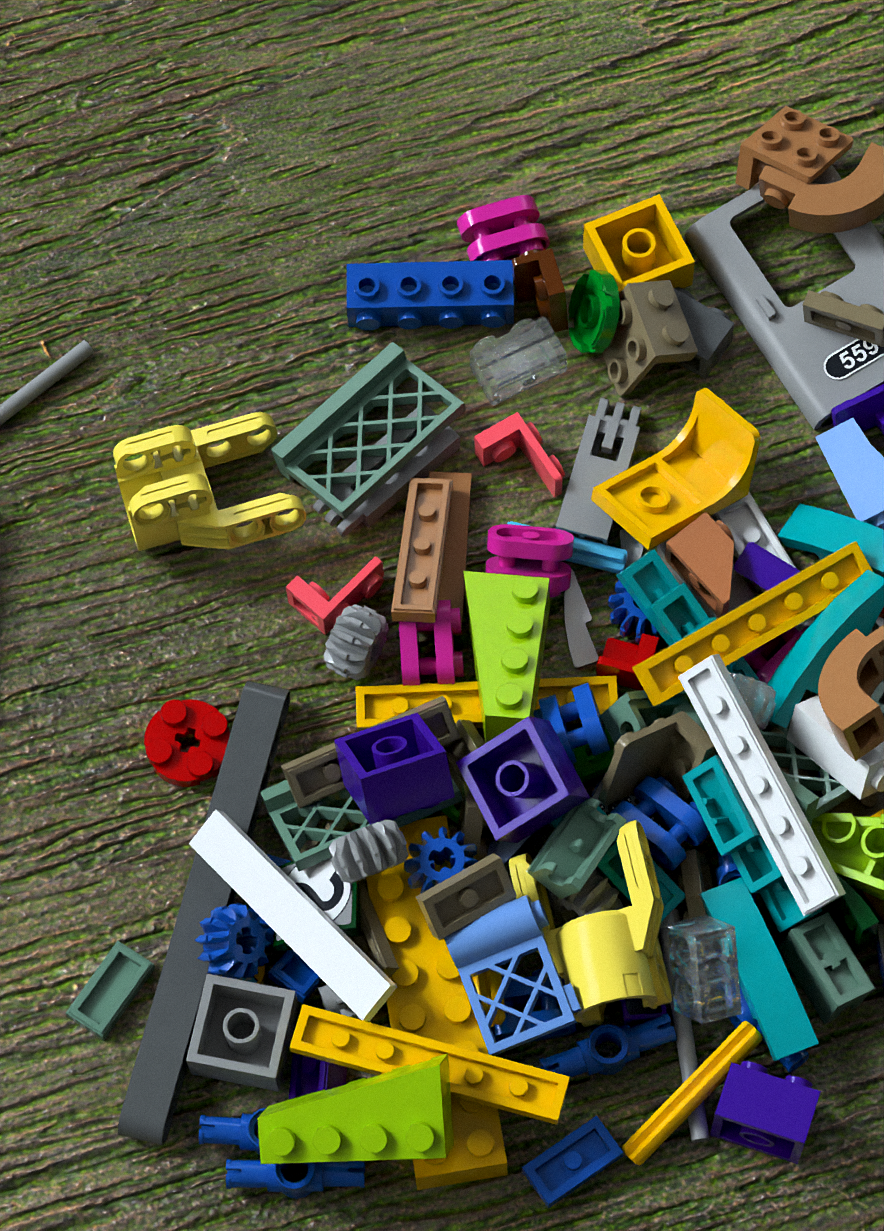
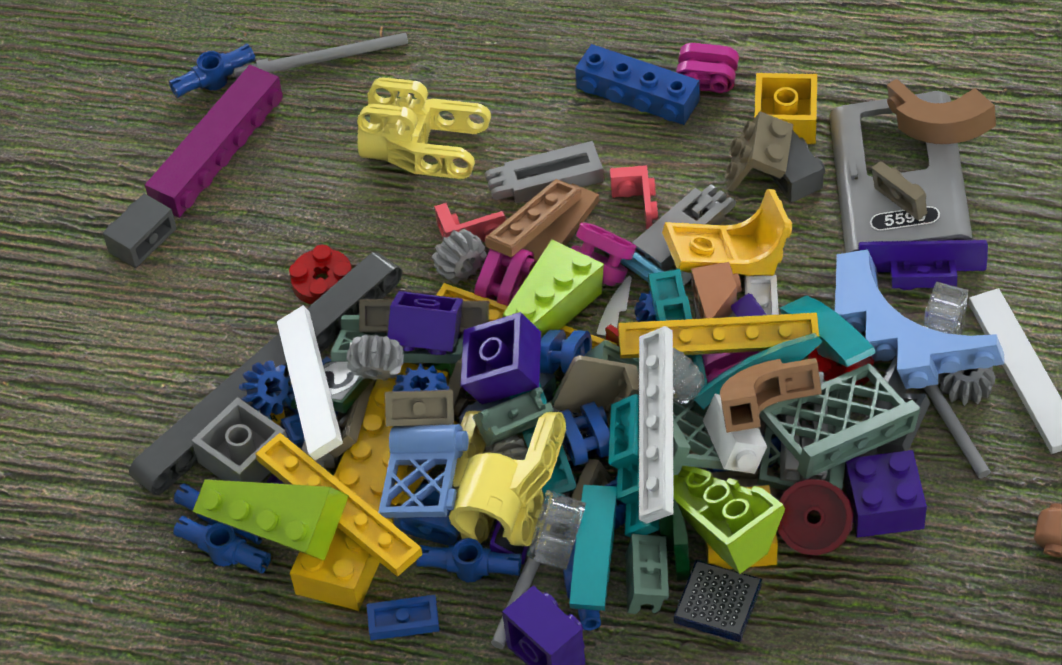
camera: 30 degrees right, 15 degrees down
(110, 990) = (180, 394): sand green tile -> none
(346, 414) = (543, 129): sand green fence -> none
(517, 359) = (669, 141): clear brick -> none
(539, 279) = (709, 101): reddish brown bracket -> none
(595, 311) = (733, 128): green tile -> none
(691, 1093) = (492, 613): yellow axle -> none
(791, 145) = (923, 77): medium nougat bracket -> none

